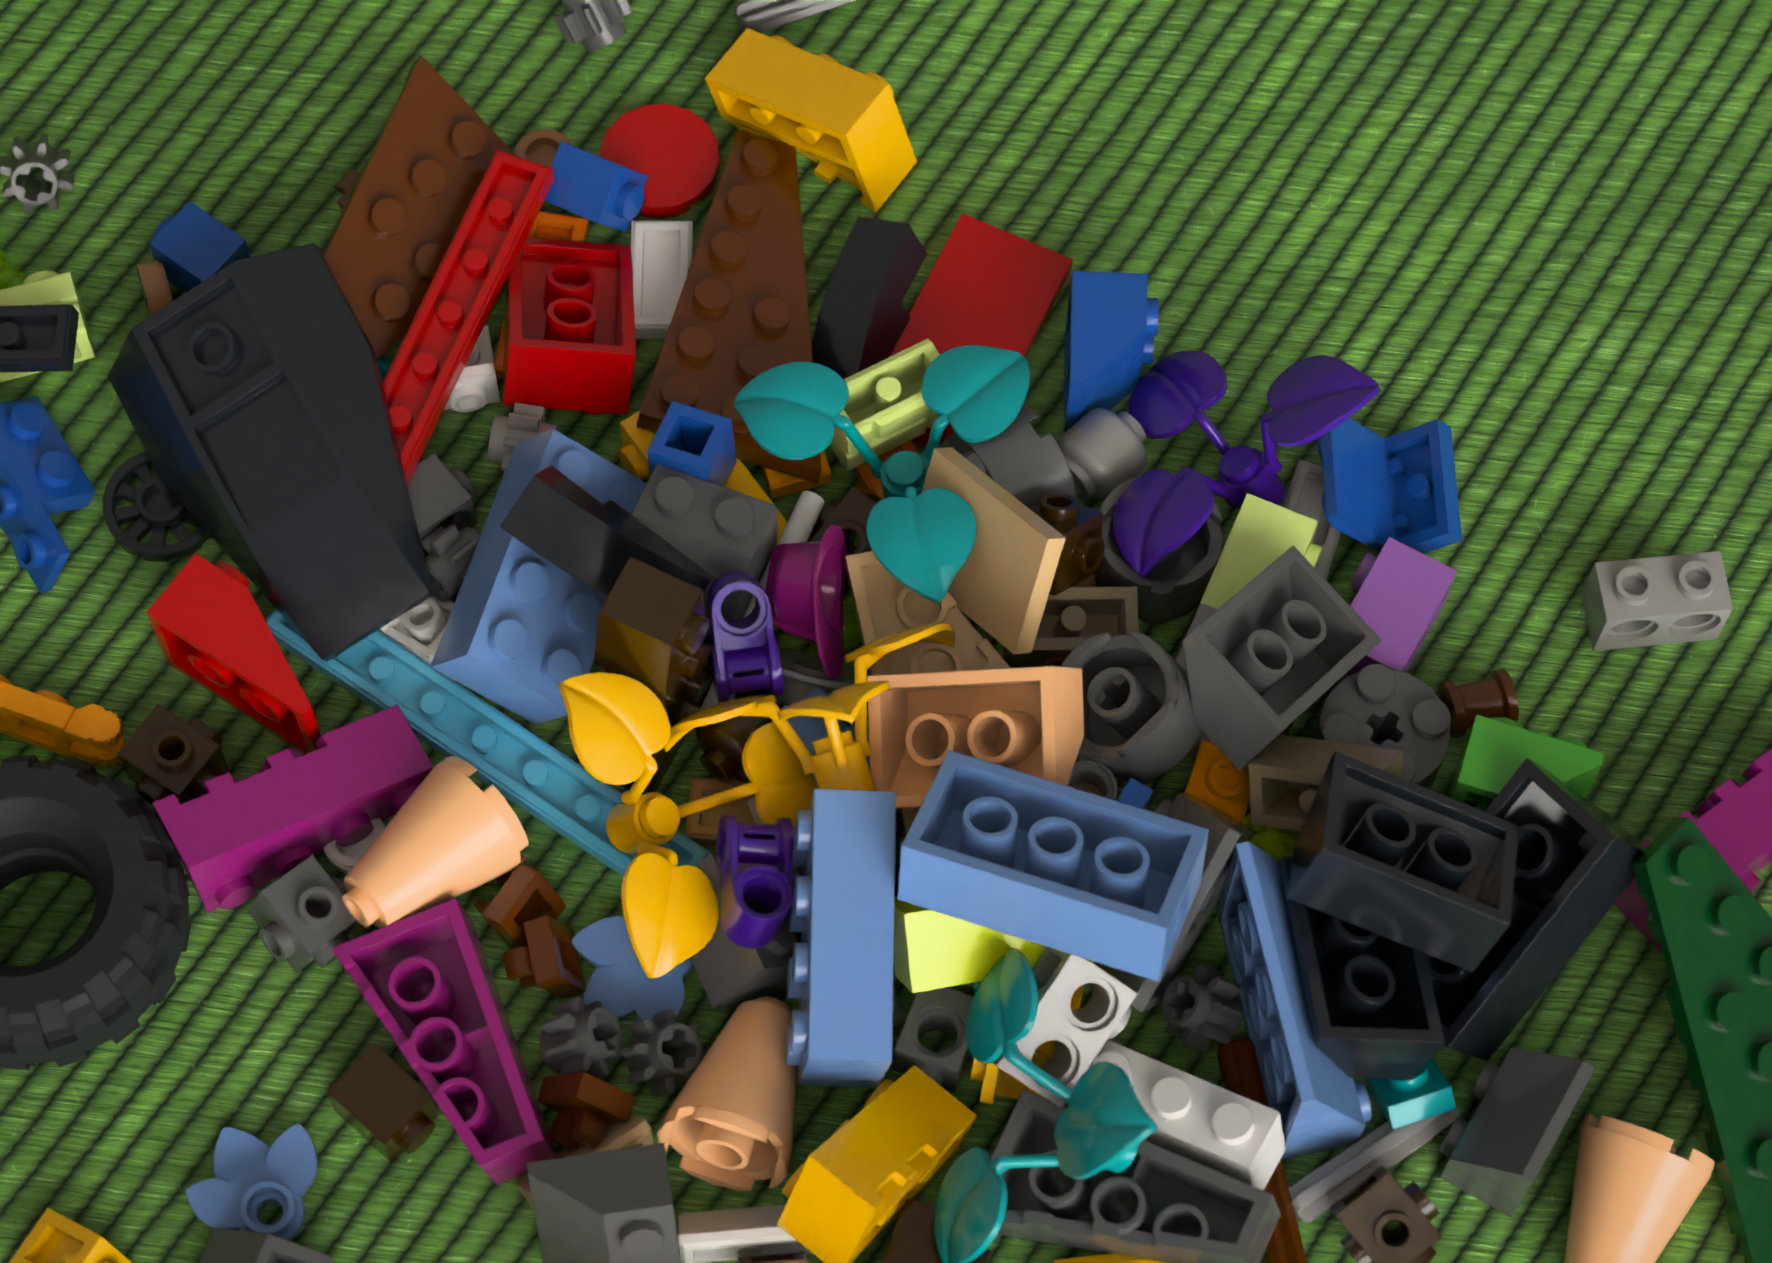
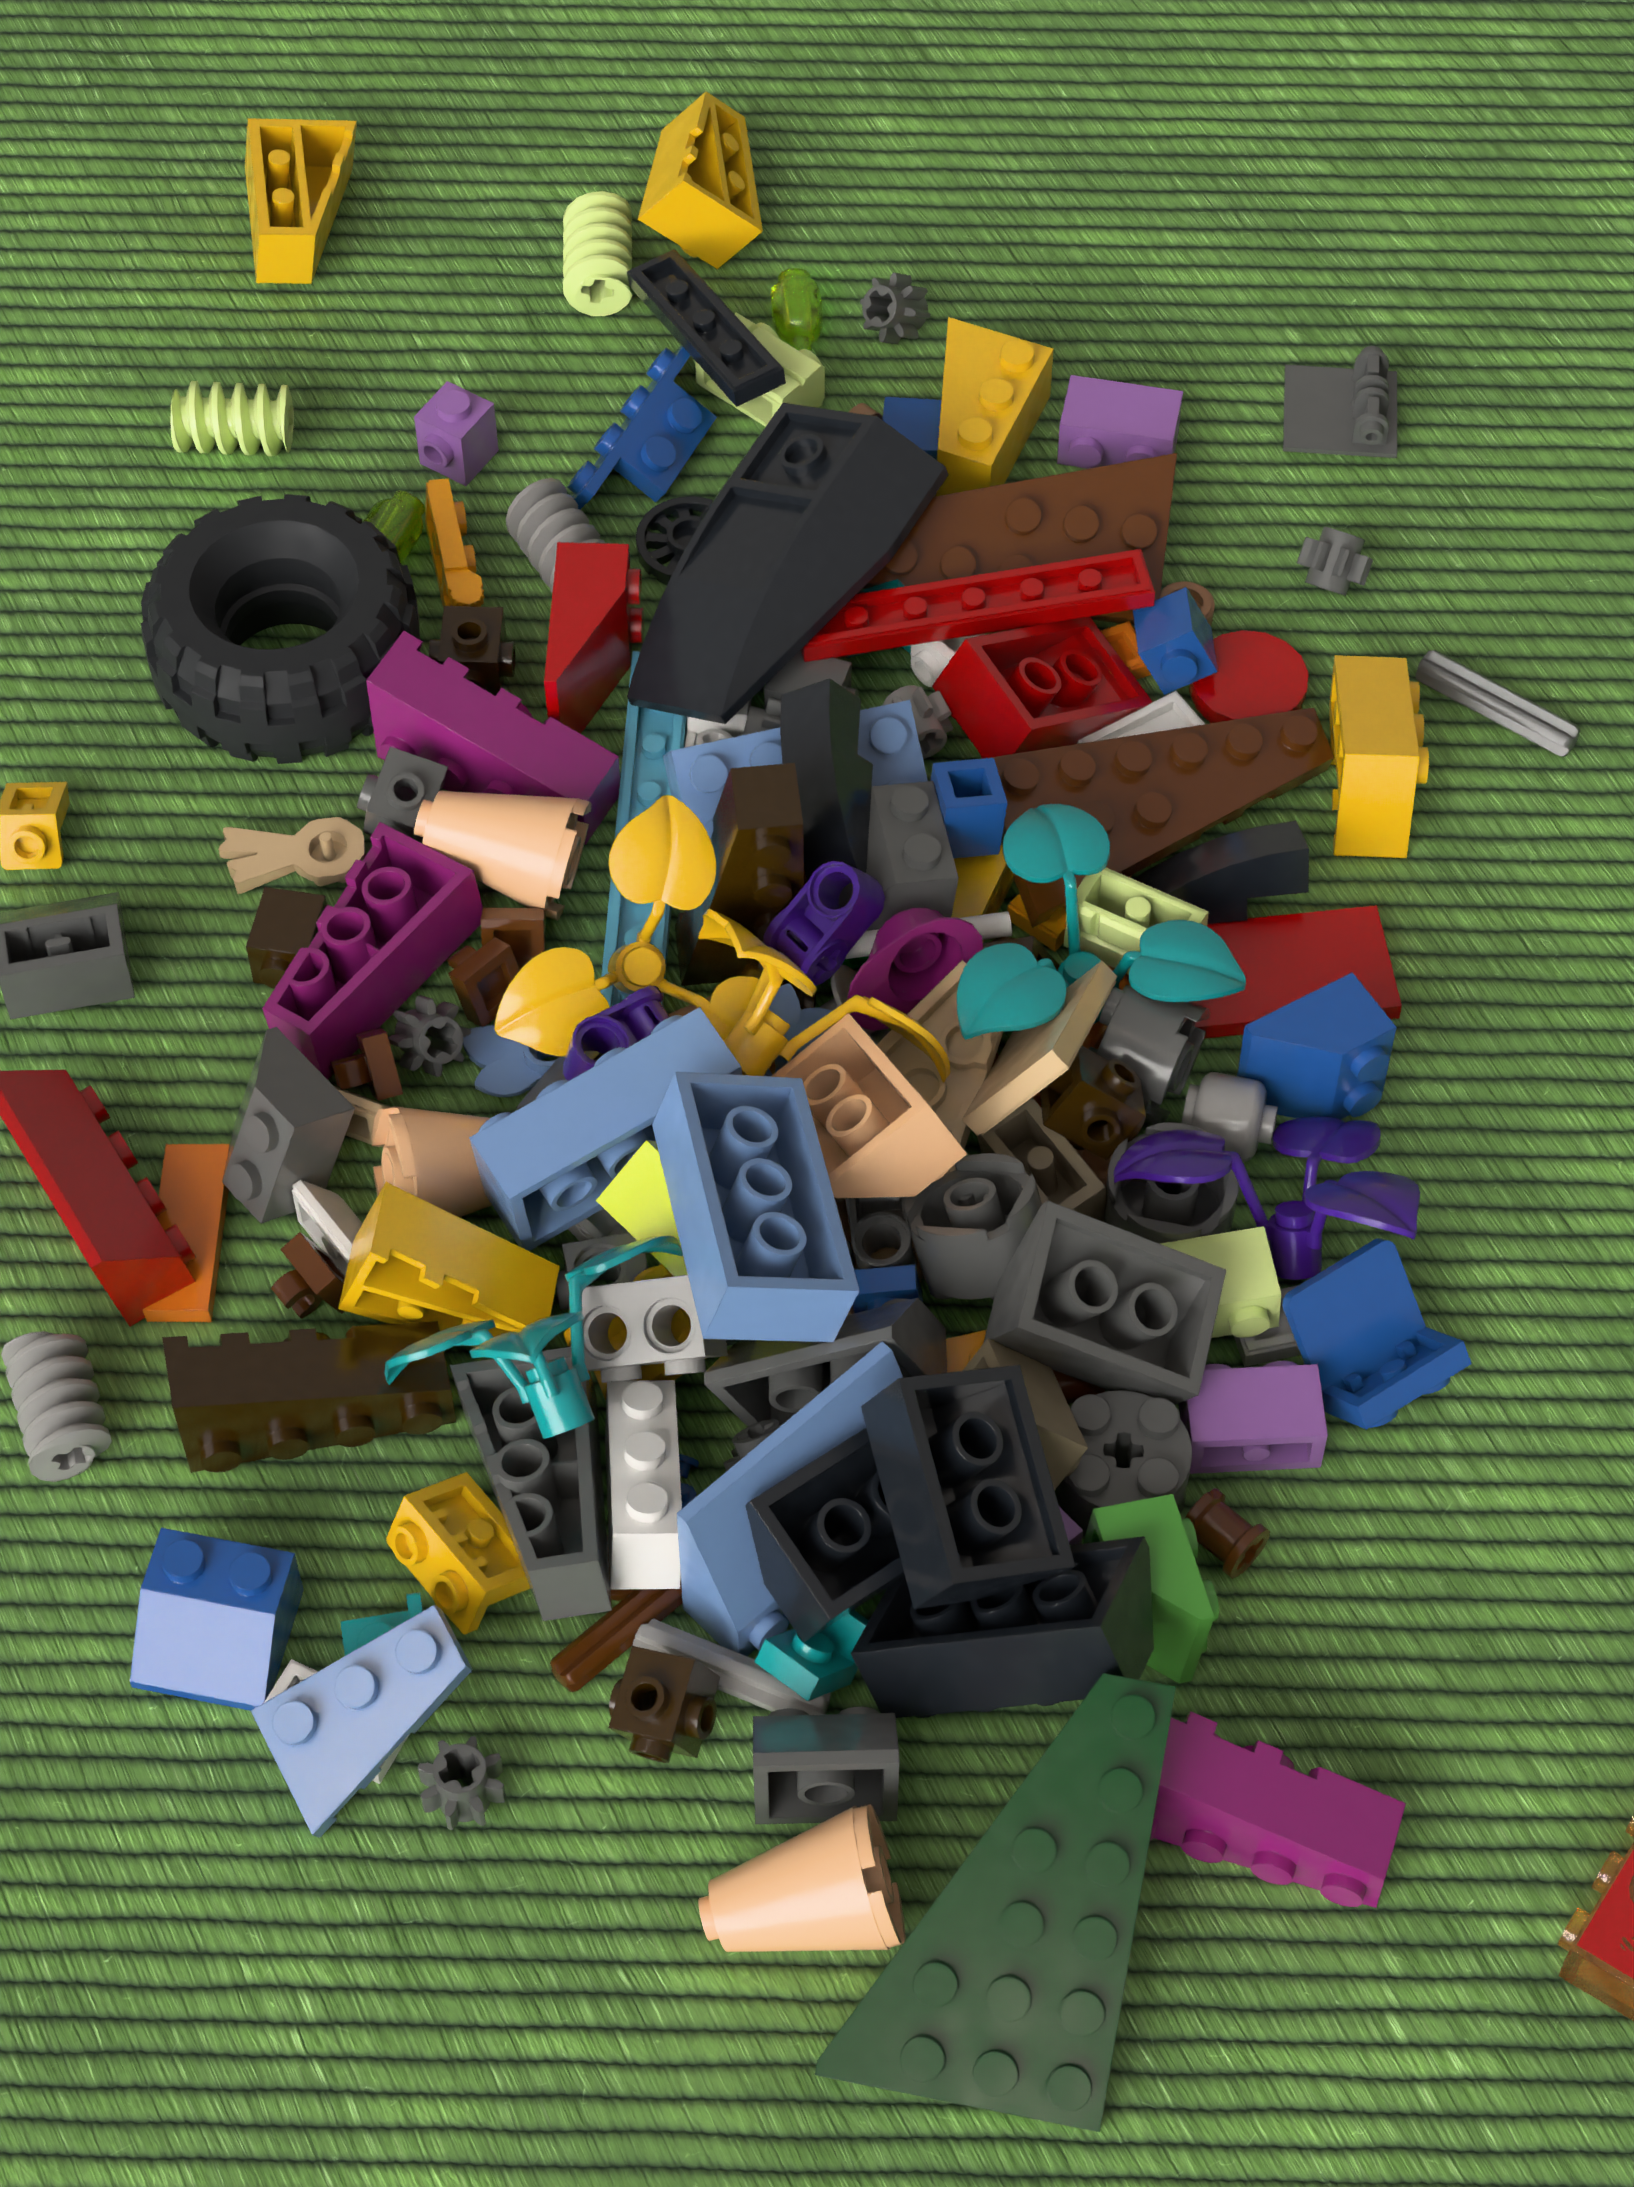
camera: 60 degrees right, 10 degrees down
(89, 614) = (543, 517): none -> light grey piece
(205, 155) = (988, 403): none -> yellow wedge
(255, 1177) = (178, 899): medium blue plate -> none
(293, 1019) = (318, 852): none -> tan piece
(316, 82) = (1116, 422): none -> medium lavender brick
(659, 1036) = (457, 1078): dark grey gear -> none
(1656, 600) = (1438, 1624): light grey brick -> none

